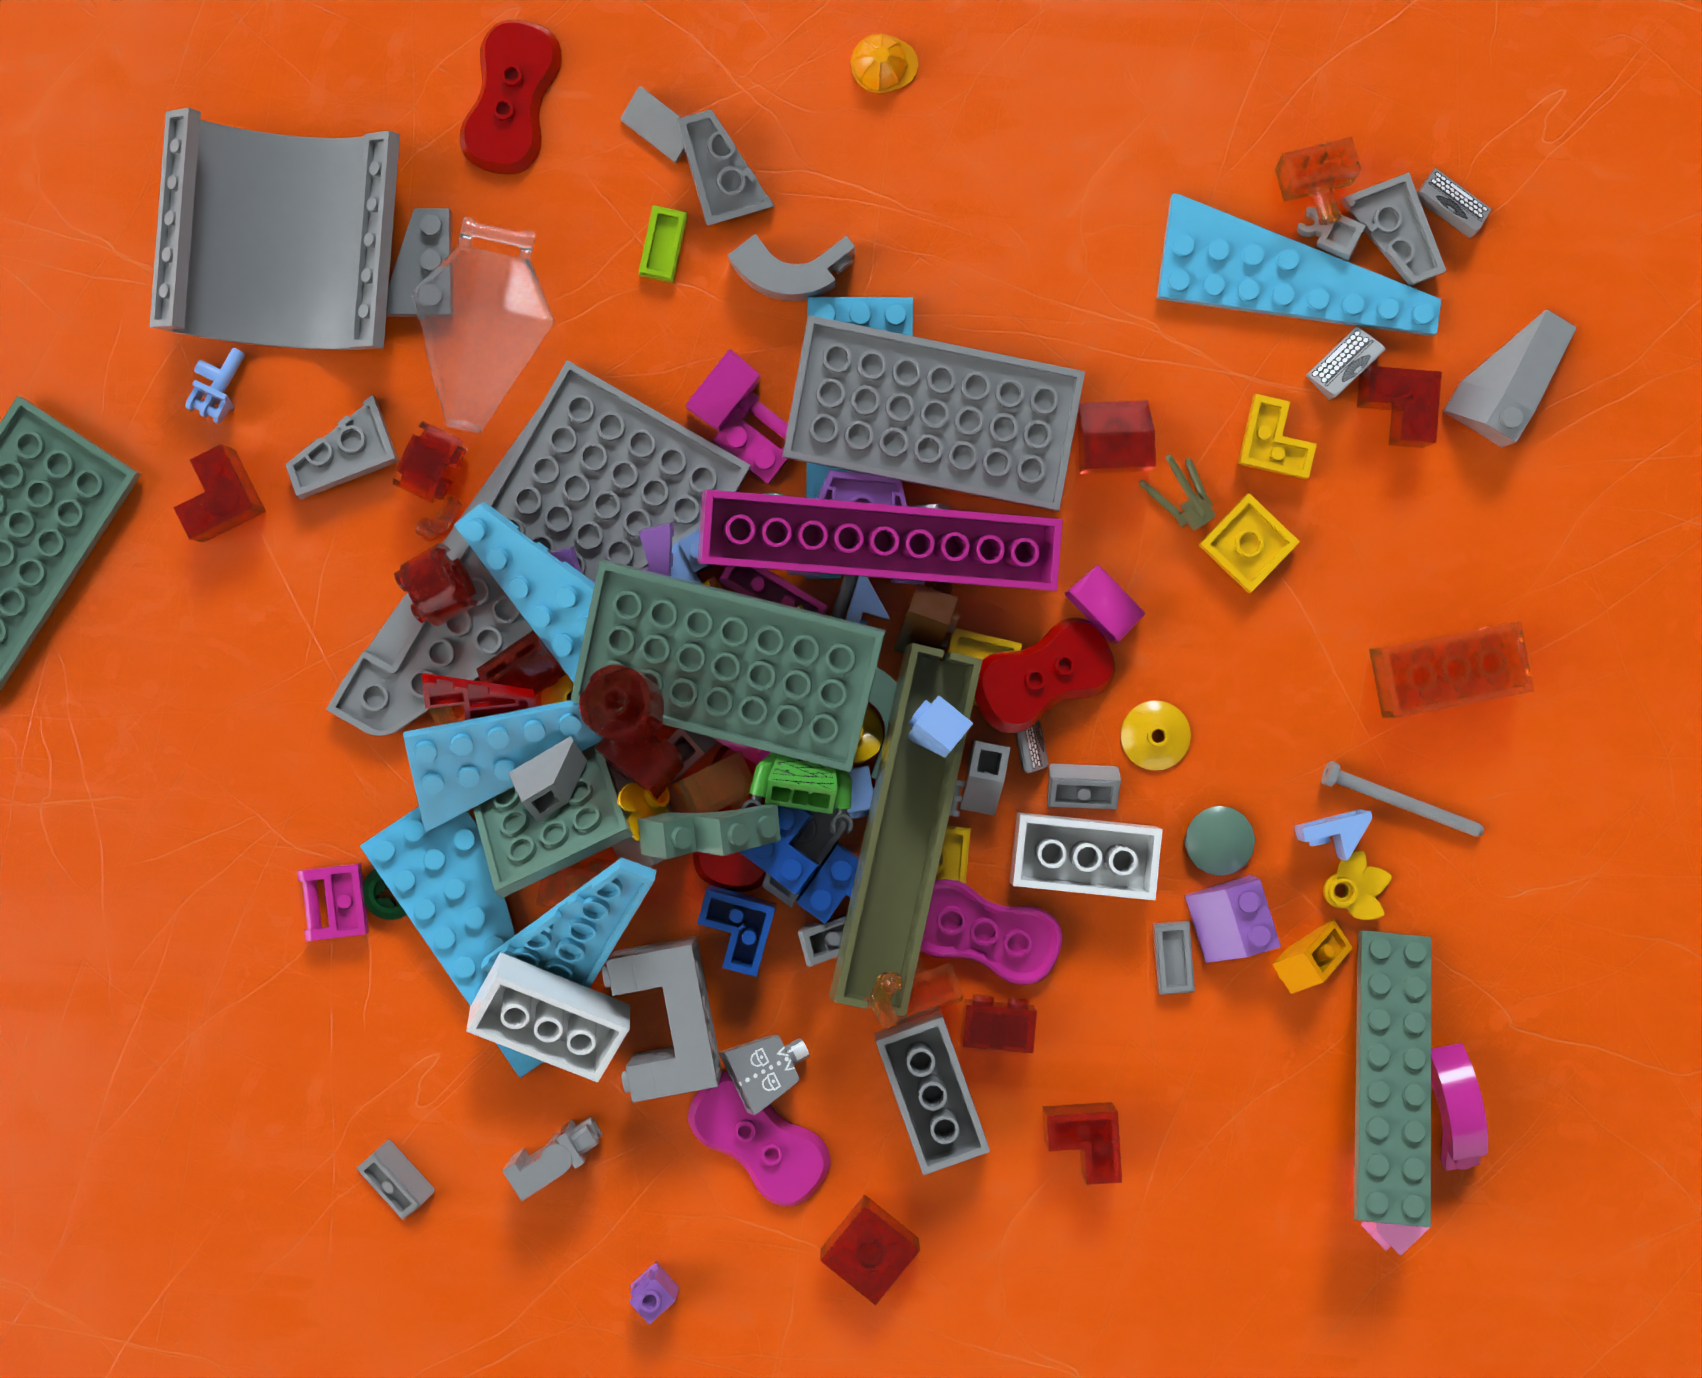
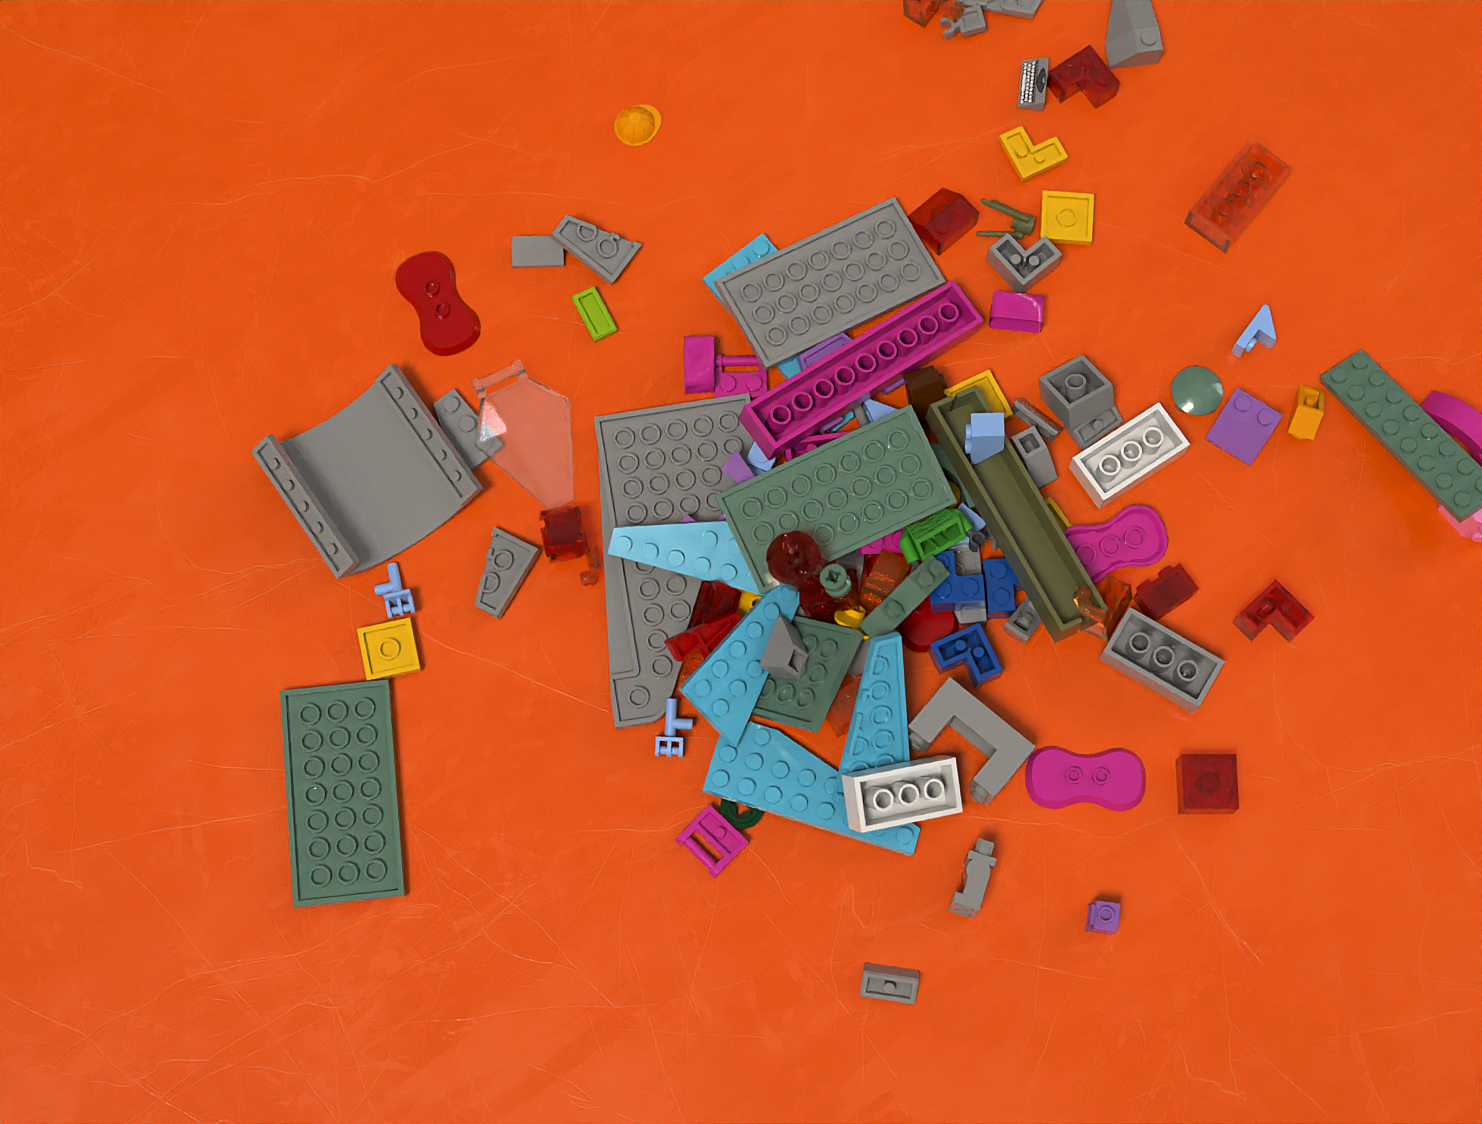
camera: 40 degrees left, 15 degrees down
(163, 440) = (389, 649): none -> yellow plate
(227, 496) = (456, 653): clear red brick -> none
(370, 766) = (671, 724): none -> light blue arm
(436, 585) = (627, 594): clear red brick -> none
(648, 766) = (837, 587): none -> sand green wheel
(763, 1069) = (1053, 728): light grey torso -> none
(786, 280) = (680, 280): light grey arch -> none
(1025, 683) = (1014, 381): red plate -> none
(1088, 745) = (1076, 392): none -> light grey brick
(1138, 730) = (1124, 365): yellow dish -> none
(1150, 563) = (1020, 267): none -> brick
(1173, 957) = (1230, 477): light grey tile -> none
(1244, 267) = (933, 77): medium azure wing -> none
(1333, 774) = (1225, 304): light grey bar -> none
(1361, 887) = (1297, 353): yellow plate -> none

